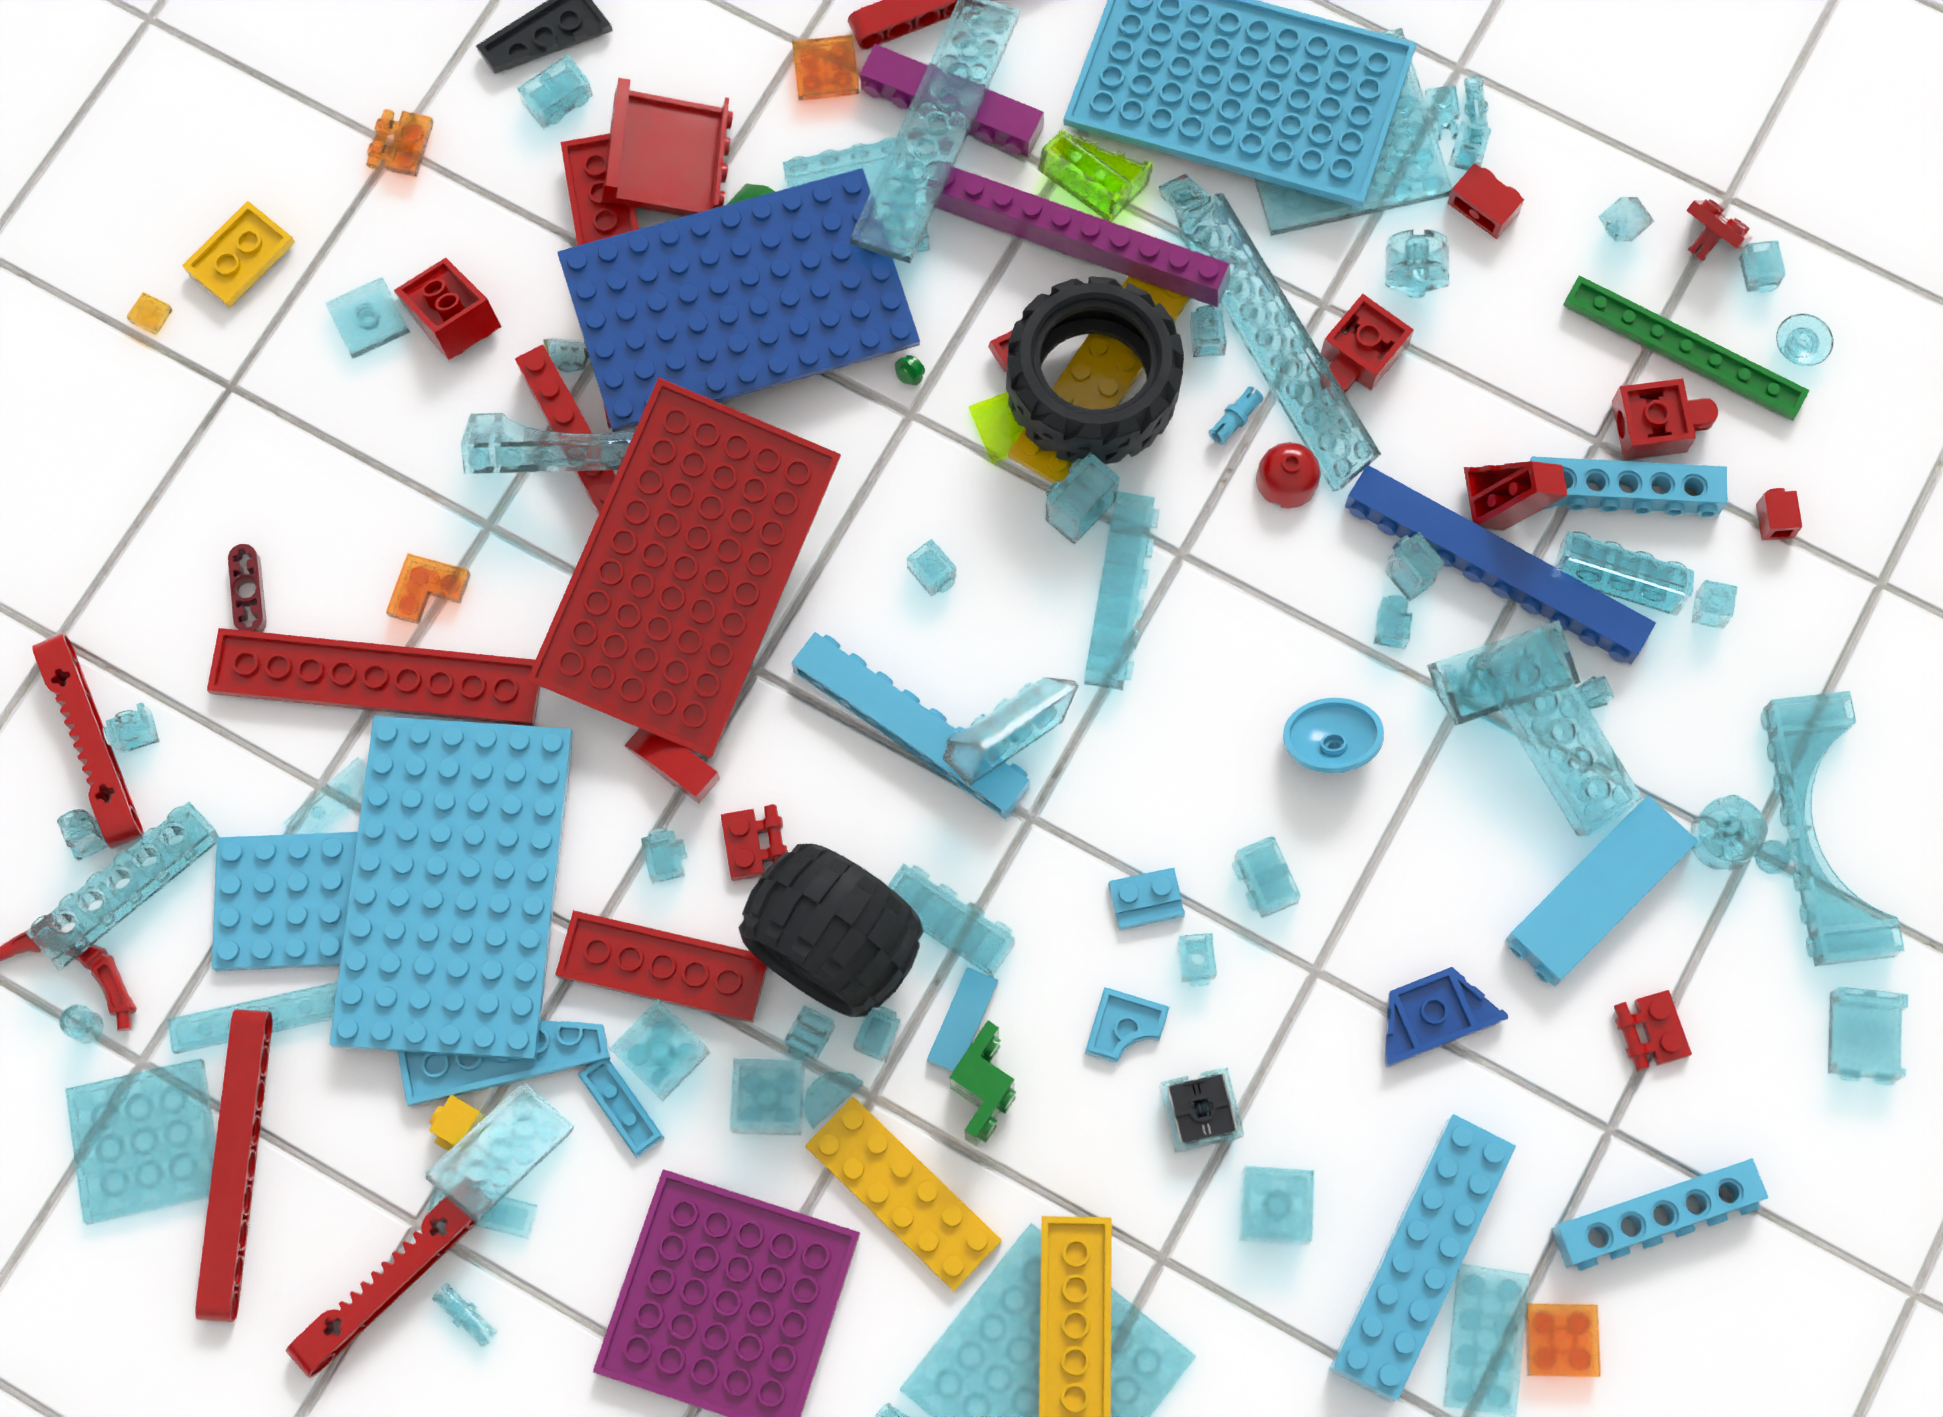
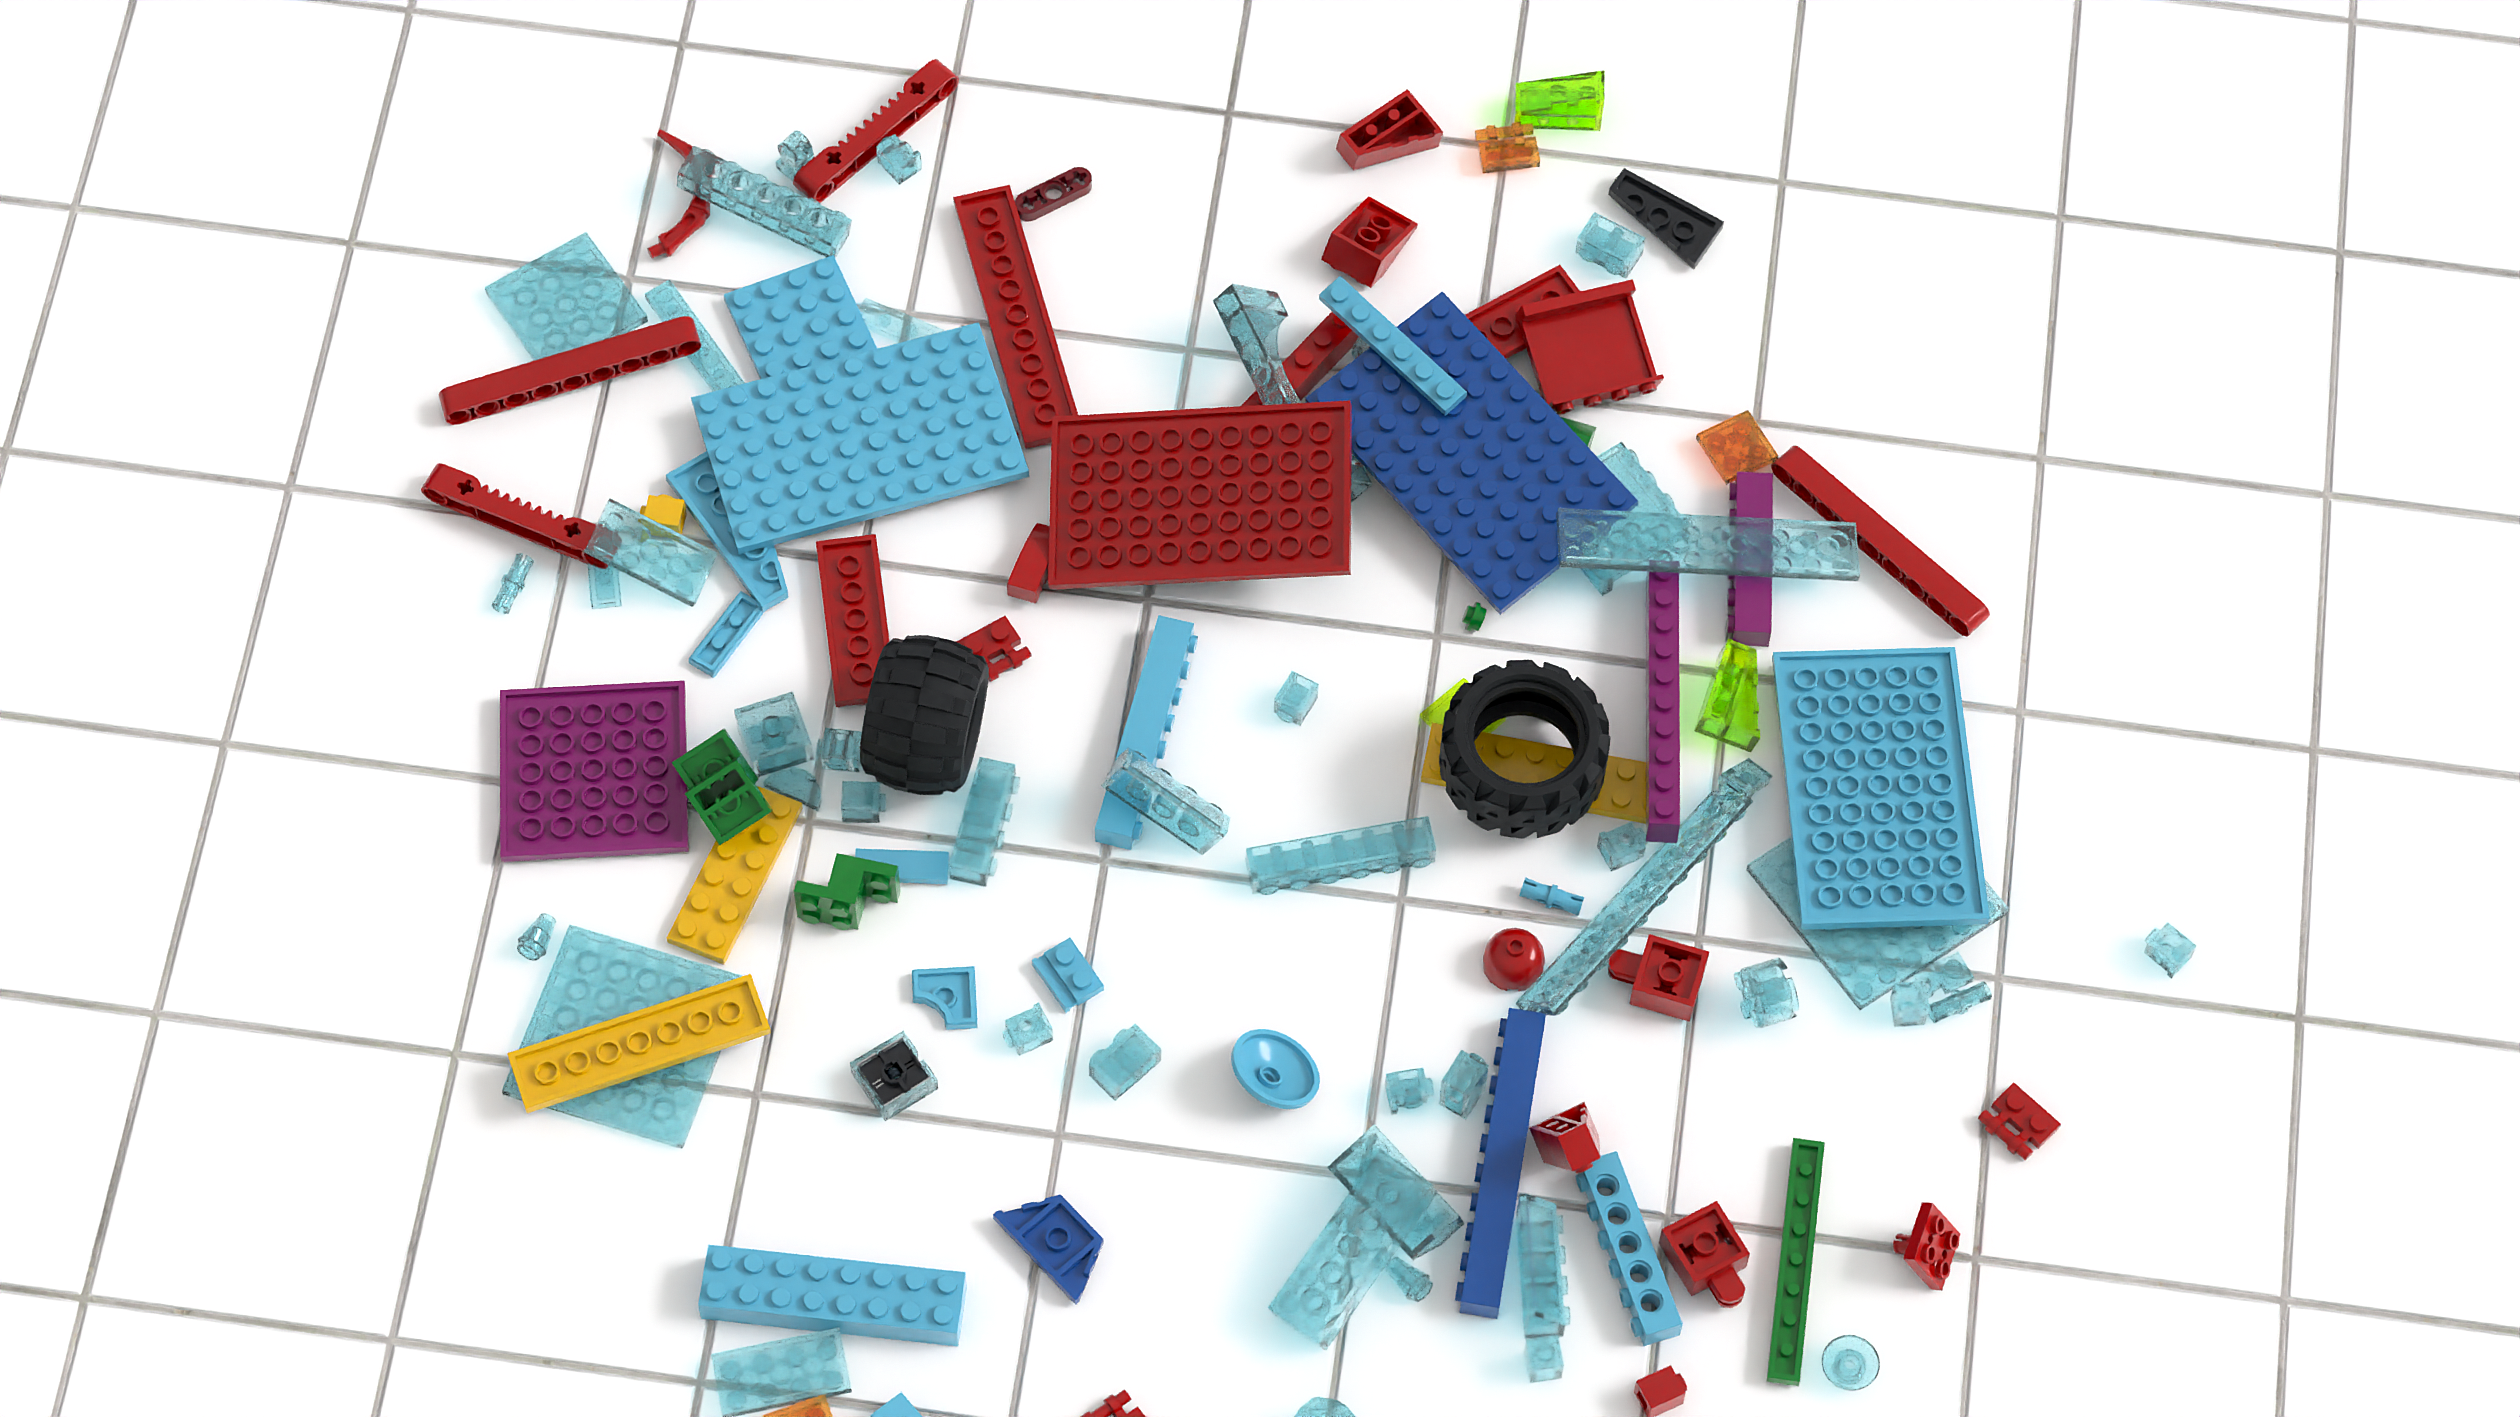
camera: 65 degrees right, 10 degrees down
(81, 1023) = (640, 220): clear light blue brick -> none
(149, 313) = (1266, 27): clear yellow plate -> none
(238, 254) = (1347, 69): yellow plate -> none
(335, 239) = (1389, 133): none -> red wedge
(367, 317) = (1334, 186): clear light blue plate -> none
(377, 69) = (1562, 102): none -> clear neon green wedge
(419, 580) = (1114, 314): clear orange plate -> none
(598, 320) = (1392, 345): none -> medium azure plate
(660, 1050) = (781, 640): clear light blue brick -> none
(664, 855) = (950, 584): clear light blue brick -> none
(813, 1171) = (722, 786): none -> green bracket
(1081, 497) = (1408, 788): clear light blue brick -> none
(1276, 1205) = (833, 1162): clear light blue brick -> none
(1485, 200) = (1864, 1039): red brick -> none
(1600, 891) = (1224, 1343): medium azure brick -> none
(1606, 100) = (2025, 1116): none -> red plate
(1626, 219) = (1900, 1163): clear light blue brick -> none
(1762, 266) = (1911, 1304): clear light blue brick -> none

